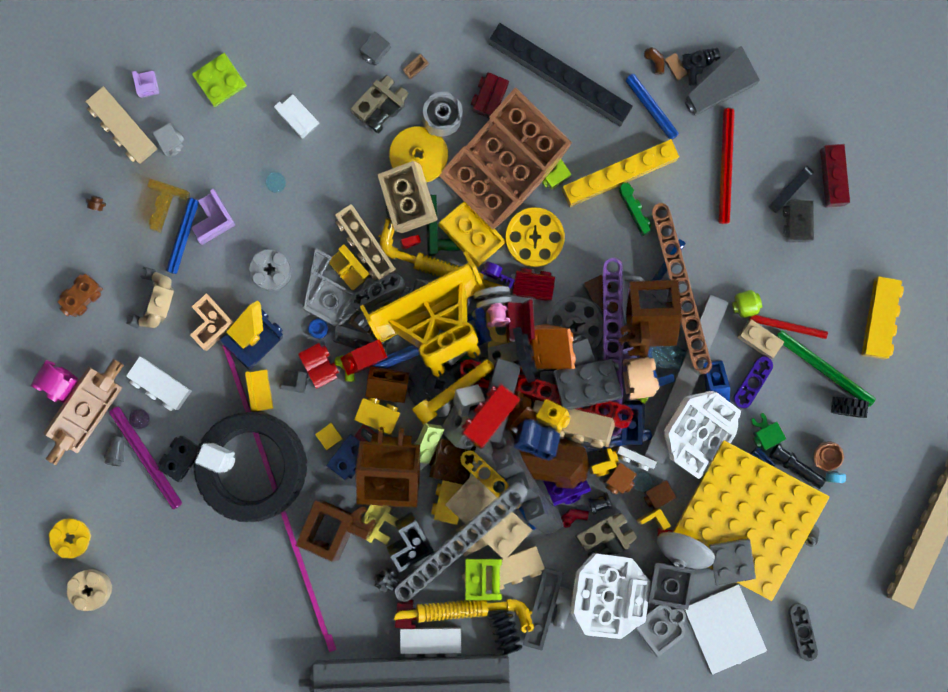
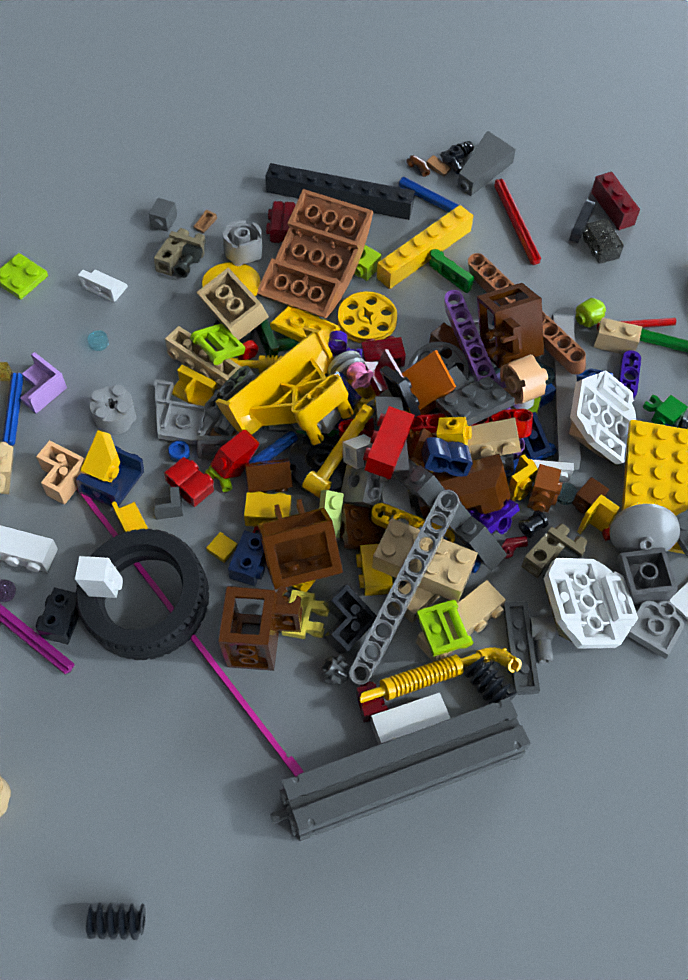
camera: 15 degrees left, 25 degrees down
(386, 237) = (222, 339): none -> lime plate

